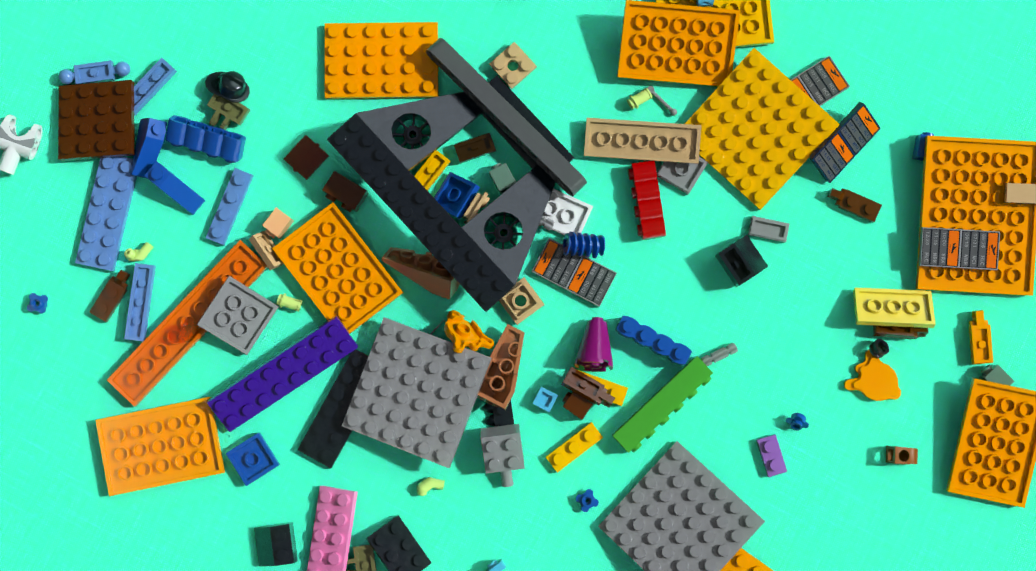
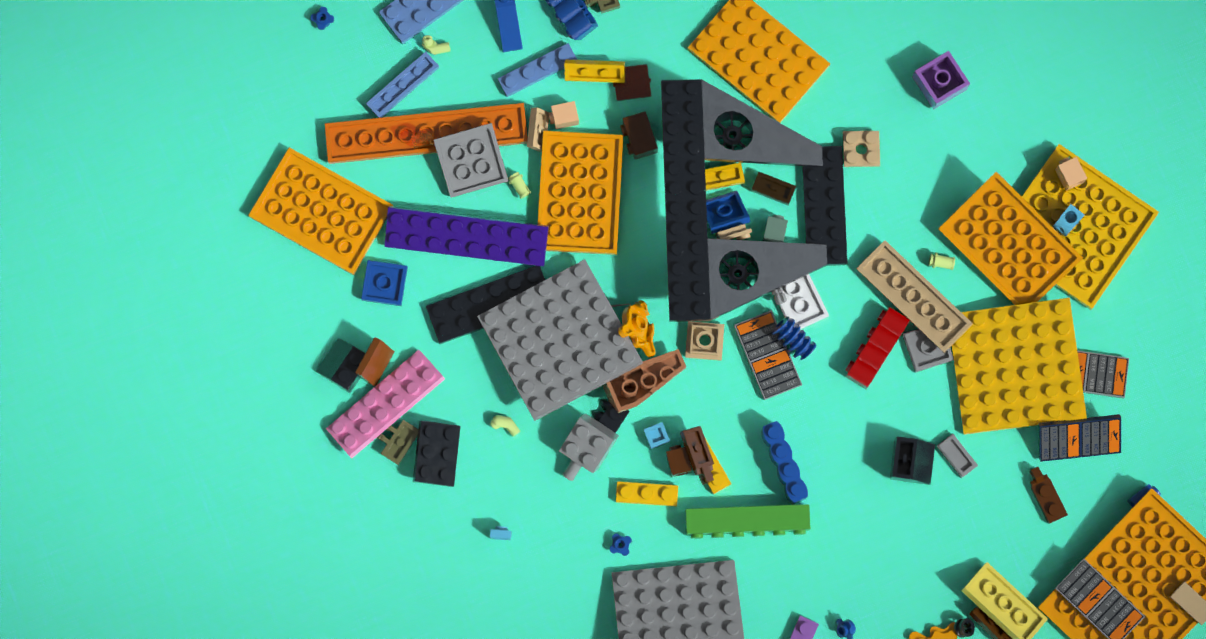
camera: 40 degrees right, 5 degrees down
(110, 296) = (383, 61): reddish brown hinge -> none
(271, 172) = (594, 71): none -> yellow plate
(295, 524) = (374, 361): none -> dark orange tile
(423, 270) = (648, 250): nougat wedge -> none
(506, 117) = (819, 184): dark grey beam -> none
(595, 347) = (732, 428): magenta cone -> none
(673, 111) = (960, 295): light grey hinge -> none
(719, 354) = (829, 521): light grey axle -> none

